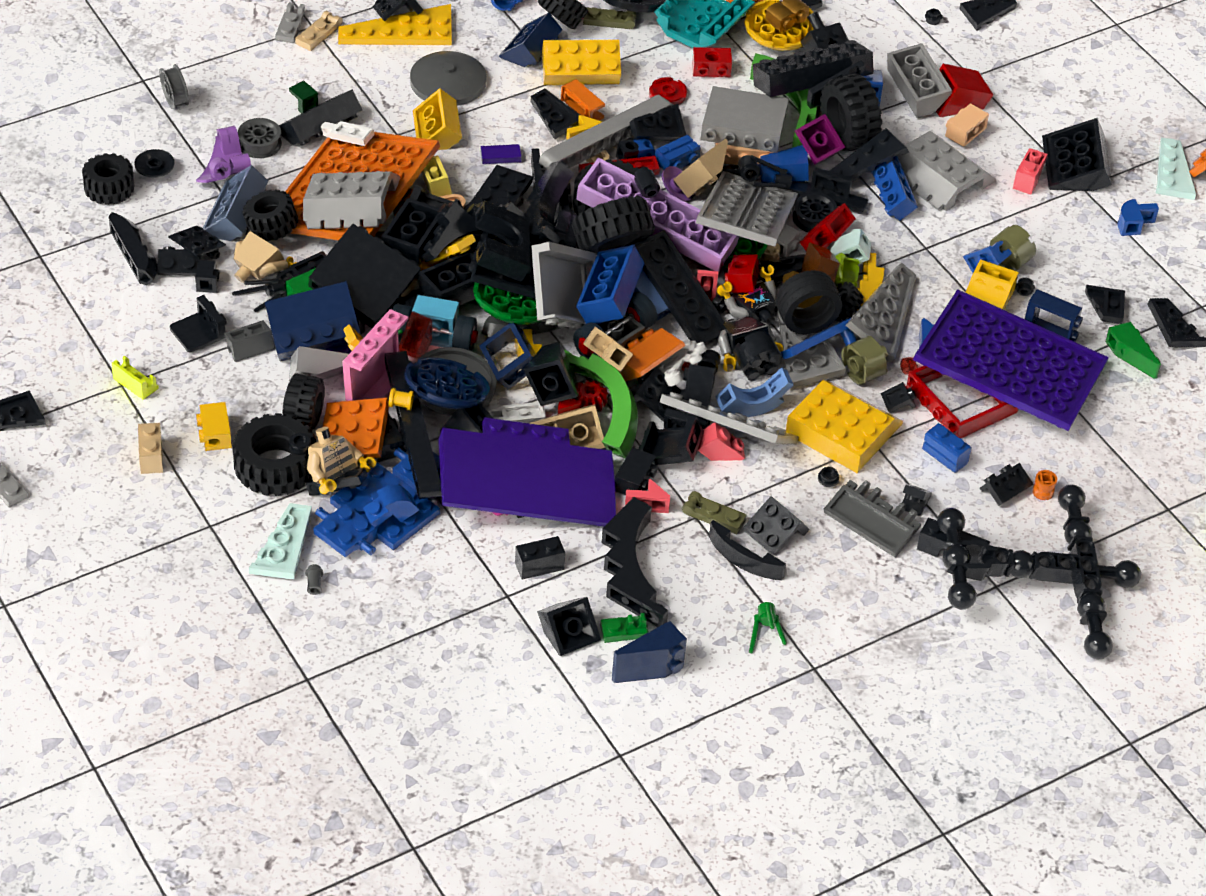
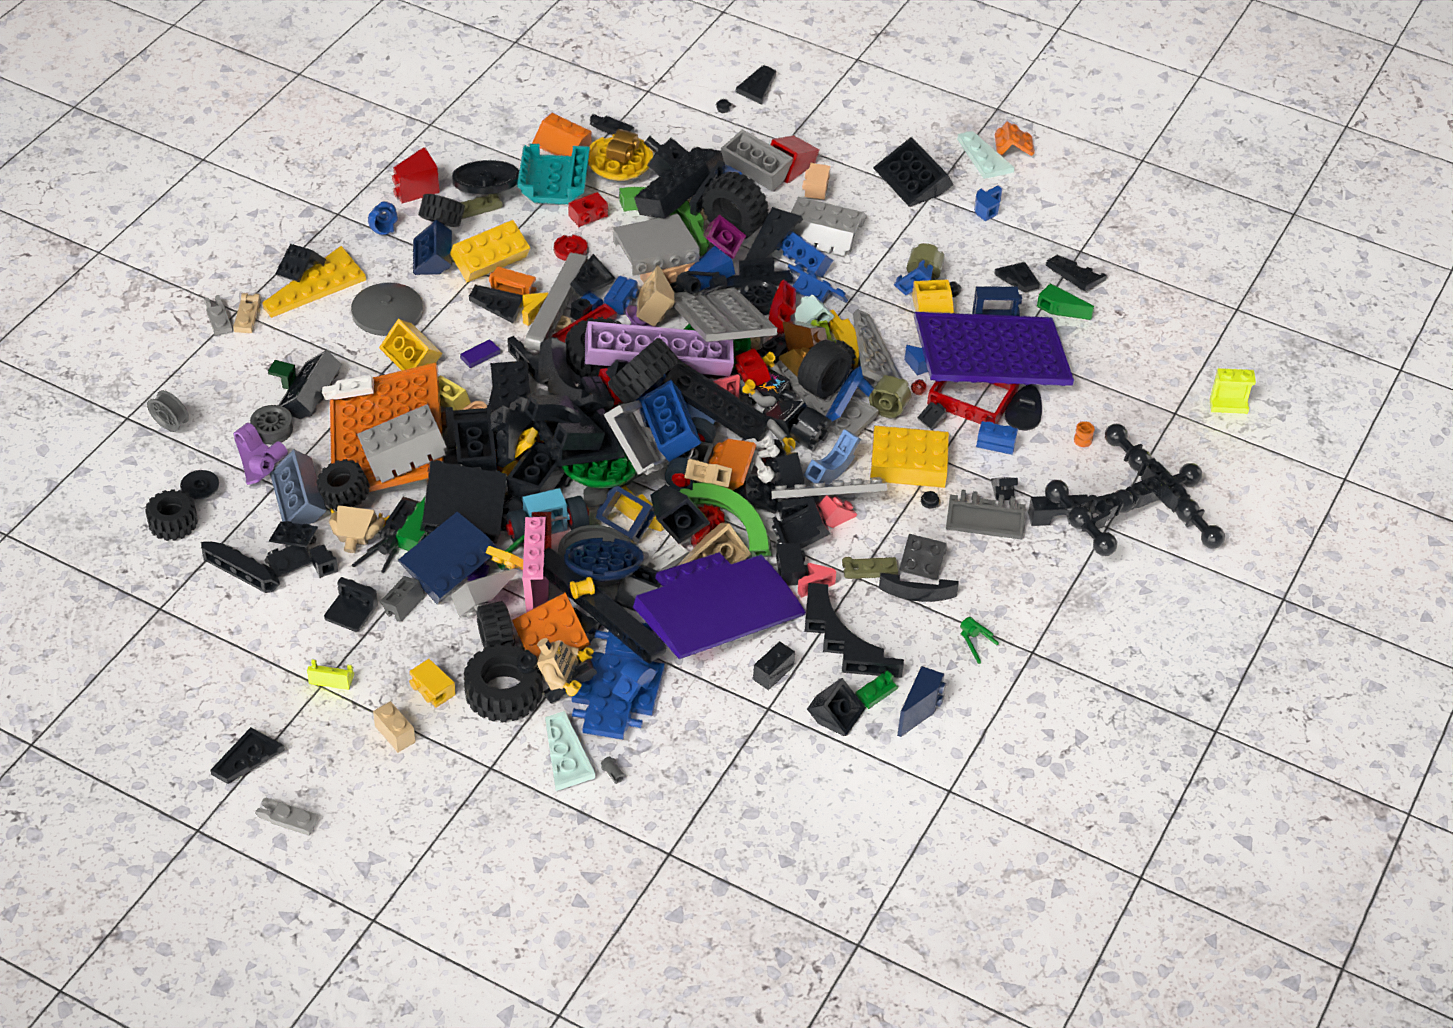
camera: 30 degrees left, 0 degrees up
(646, 182) = (641, 325): black brick -> none
(876, 226) = (810, 285): none -> blue bracket
(1005, 434) = (1024, 409): none -> black shield
(1007, 484) = (1057, 445): black bracket -> none
(1029, 171) = (889, 198): coral slope -> none

